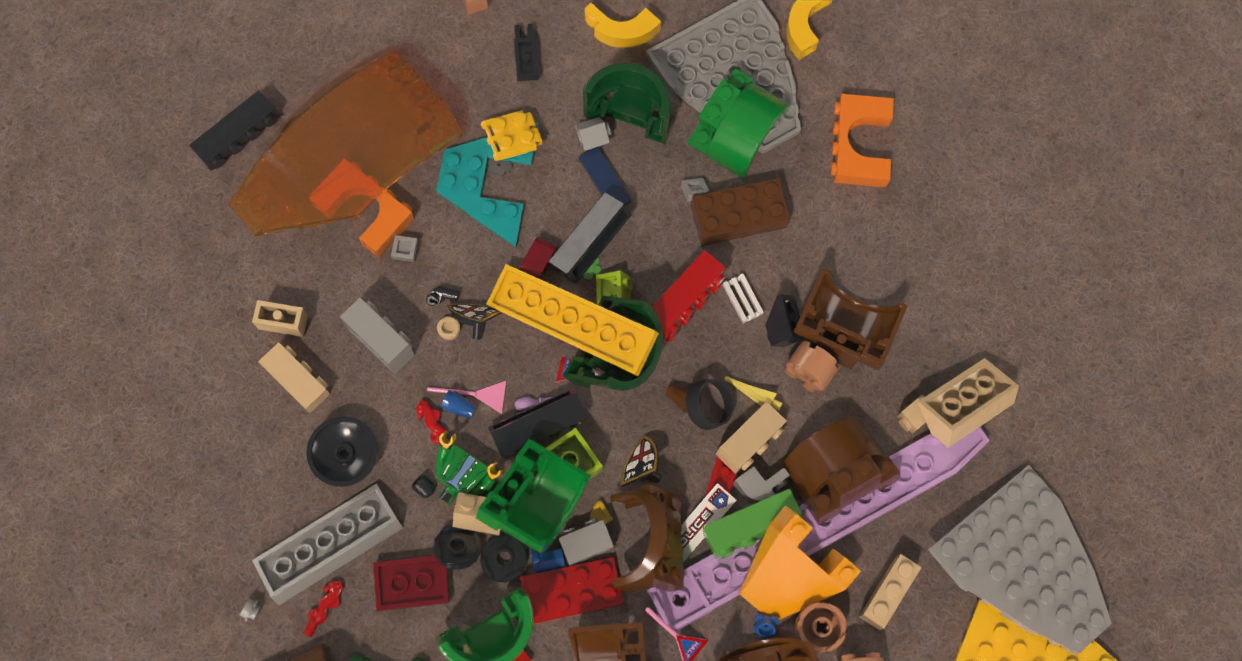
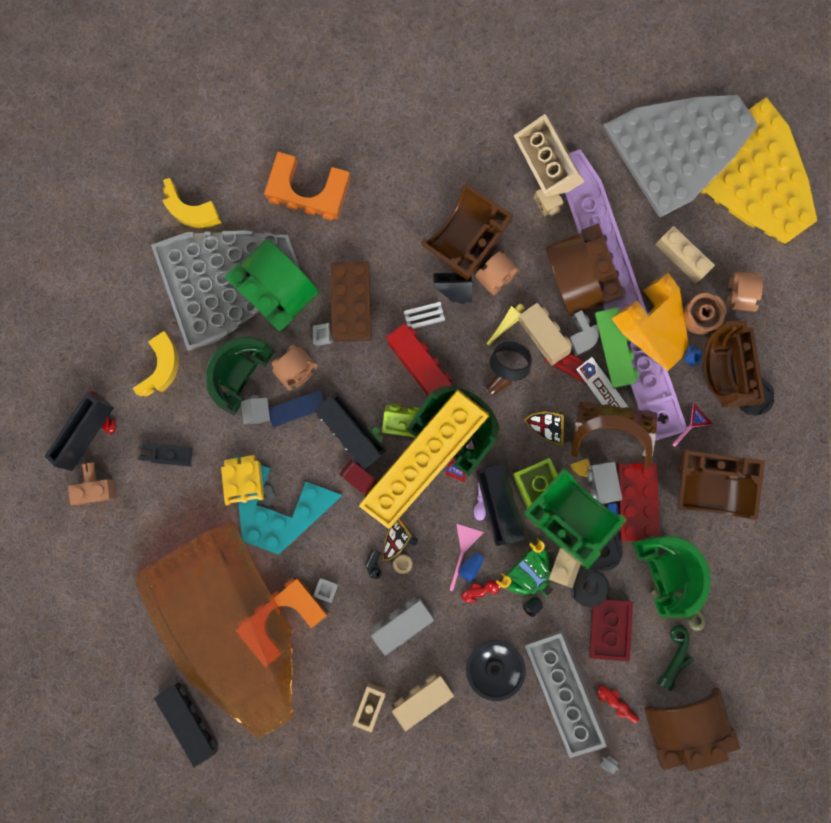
camera: 75 degrees left, 10 degrees up
(649, 163) = (293, 367): none -> nougat brick

